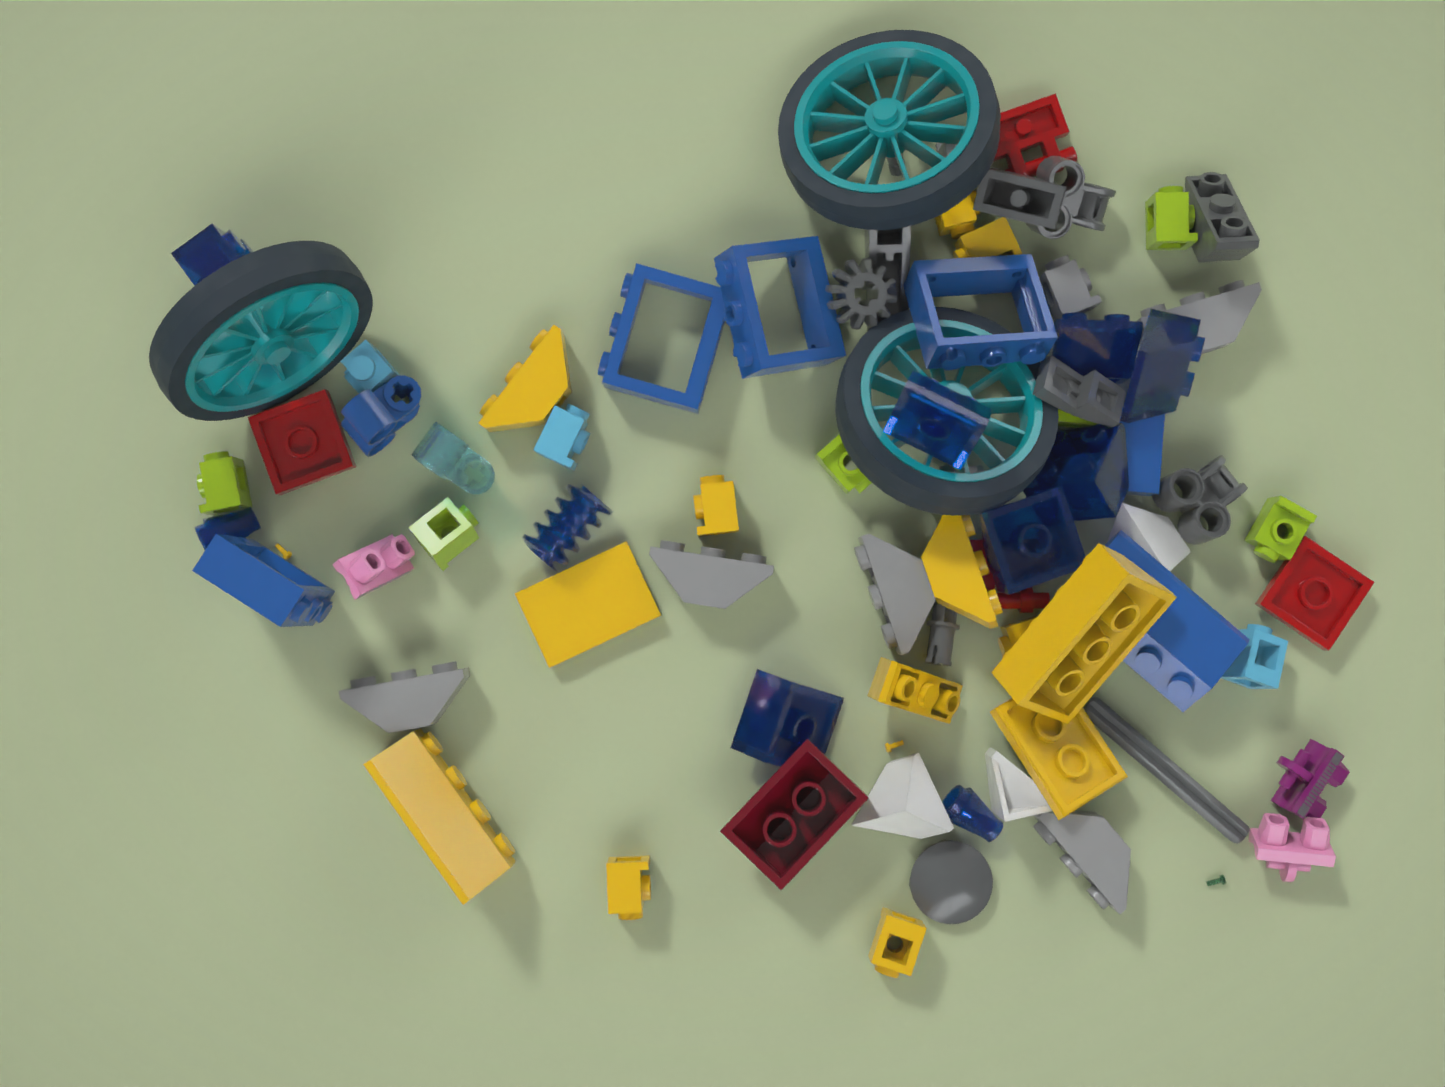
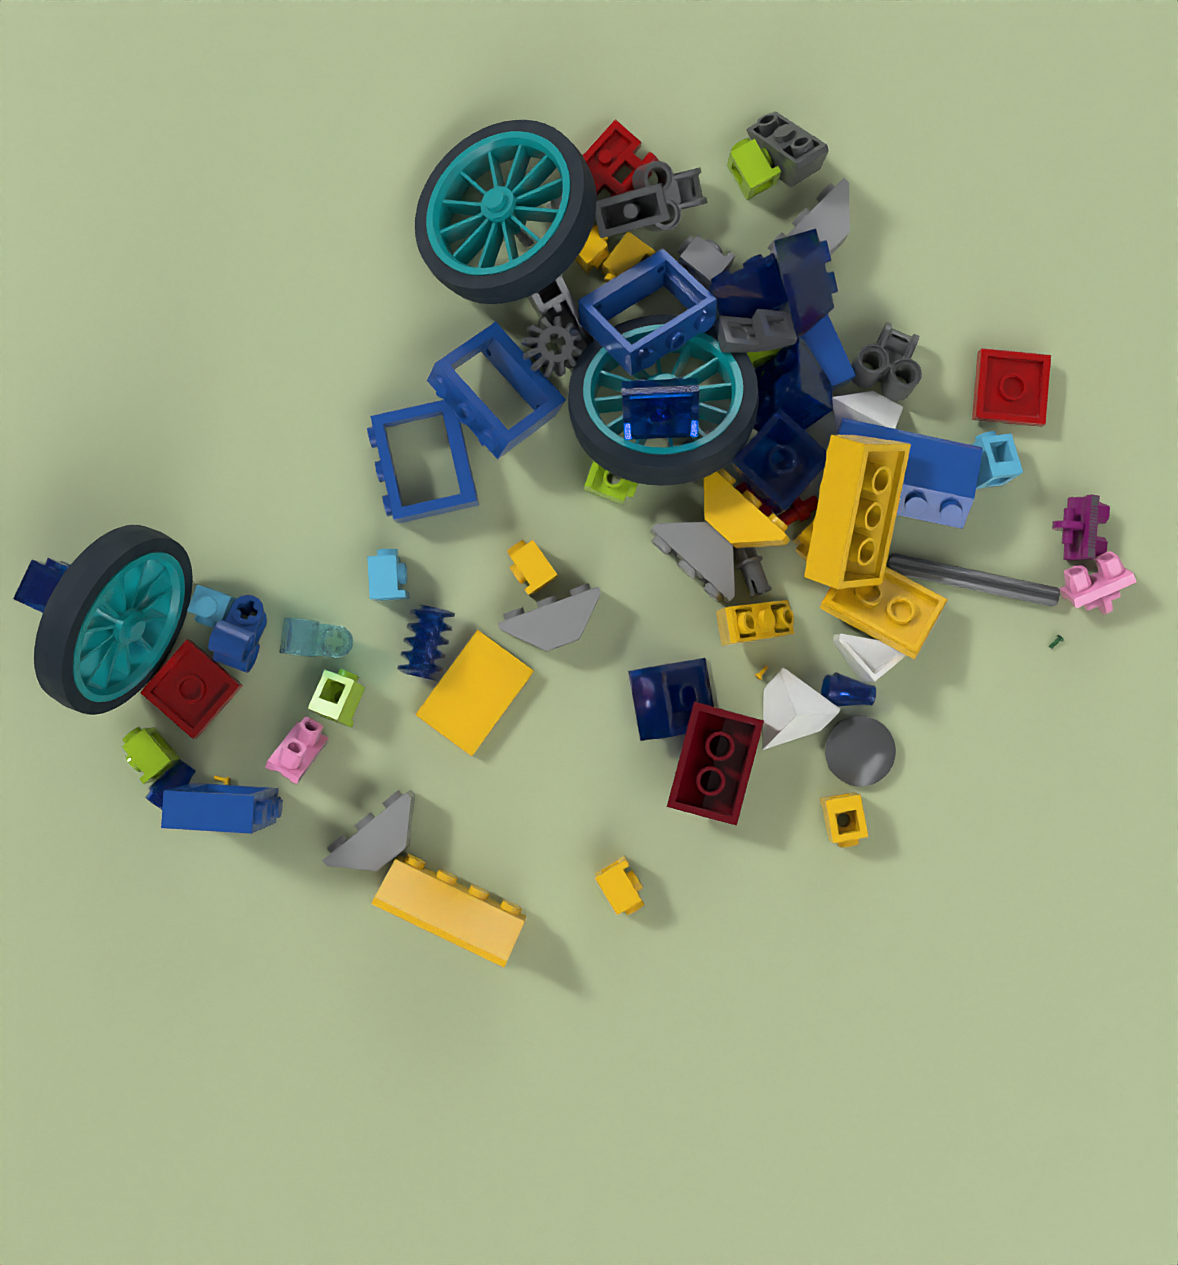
camera: 35 degrees left, 0 degrees up
(531, 386) = (342, 552): yellow slope -> none
(1091, 850) = (952, 669): light grey slope -> none
(1264, 534) = (949, 362): lime brick -> none

